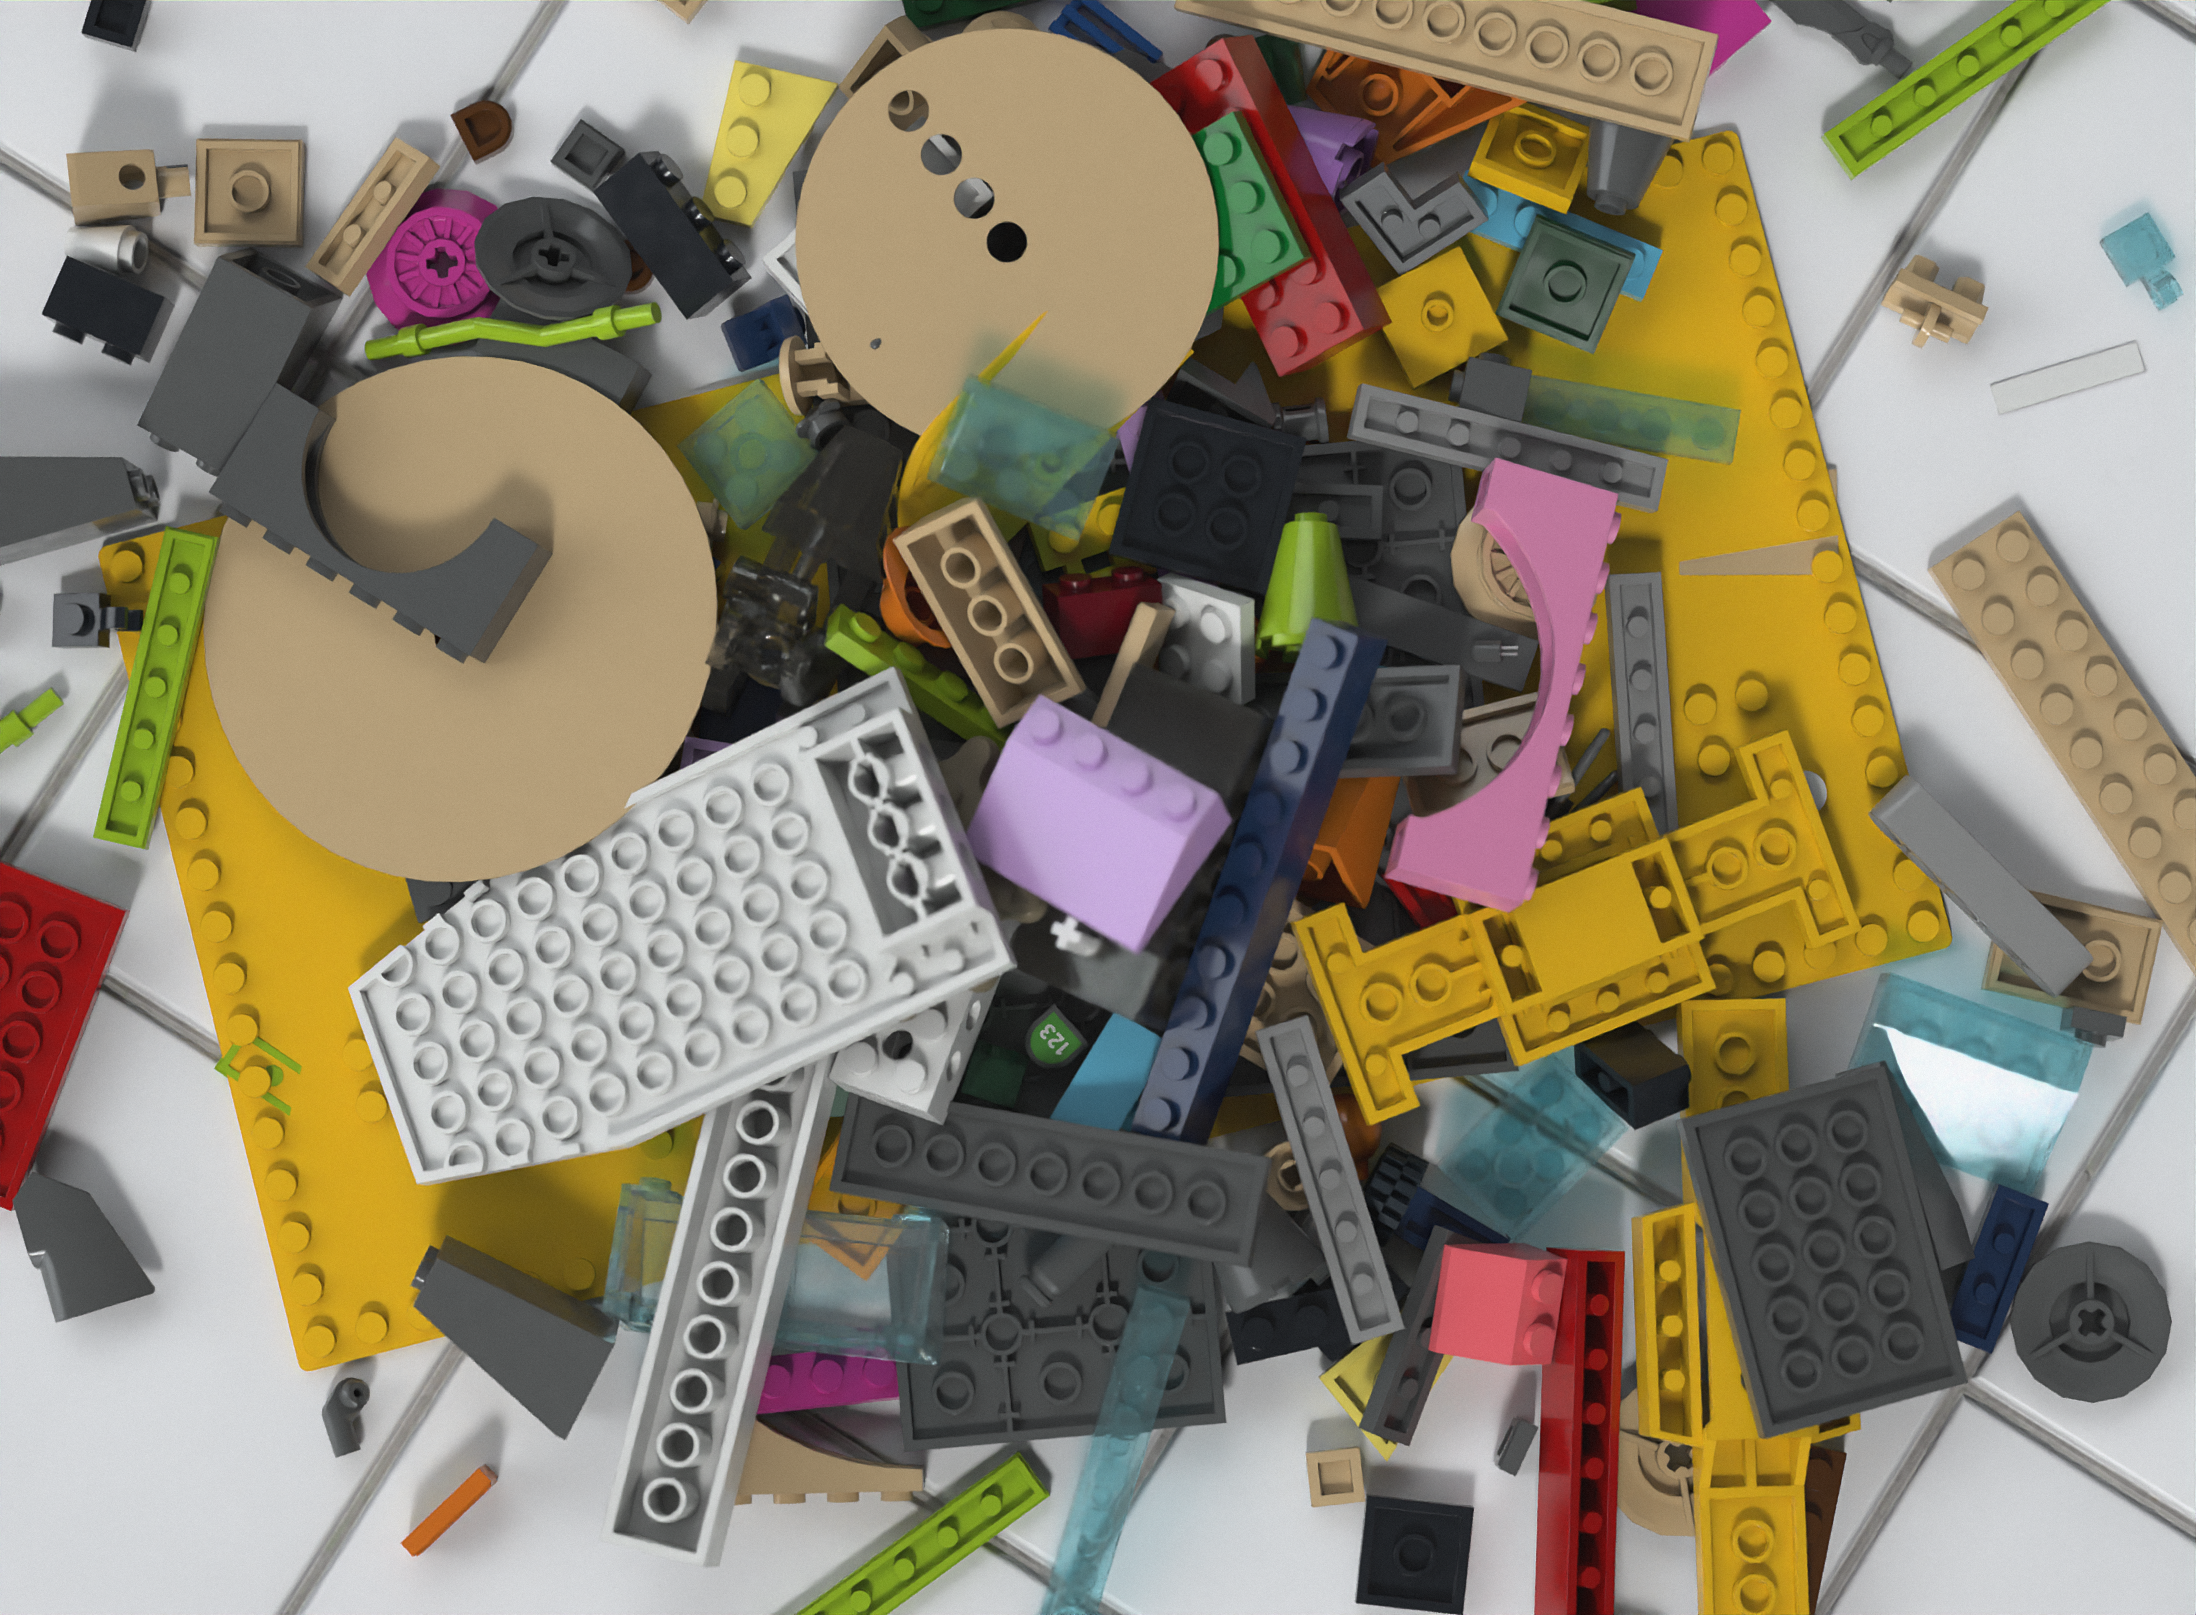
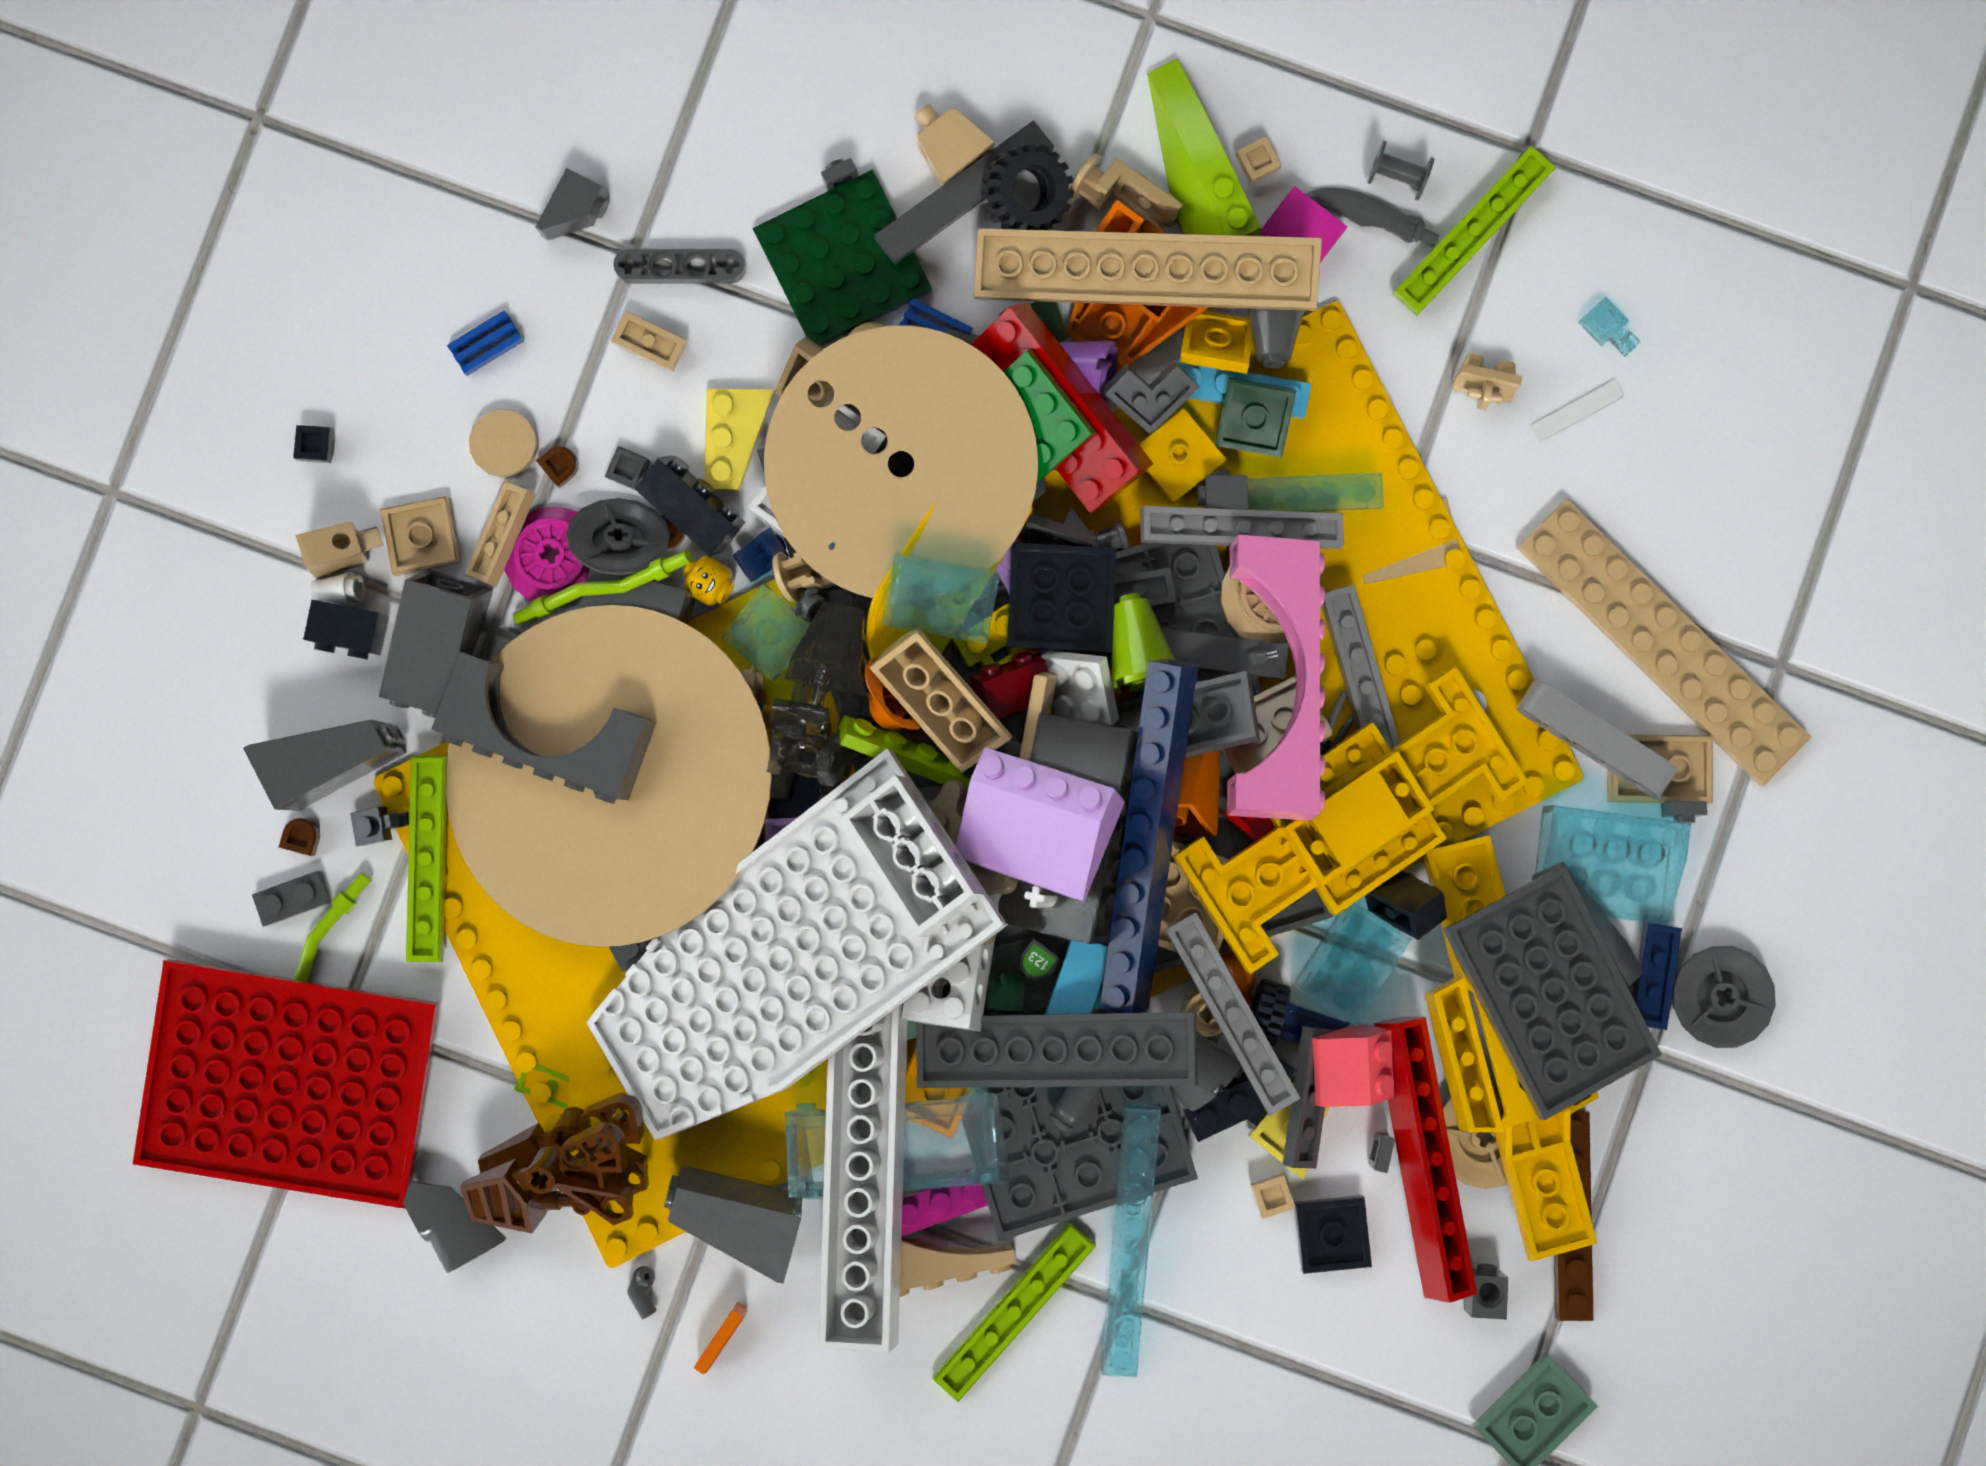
camera: 10 degrees left, 0 degrees up
(198, 1198) = (524, 1172): none -> reddish brown piece
(406, 78) = (503, 443): none -> tan tile
(676, 355) = (708, 580): none -> yellow head

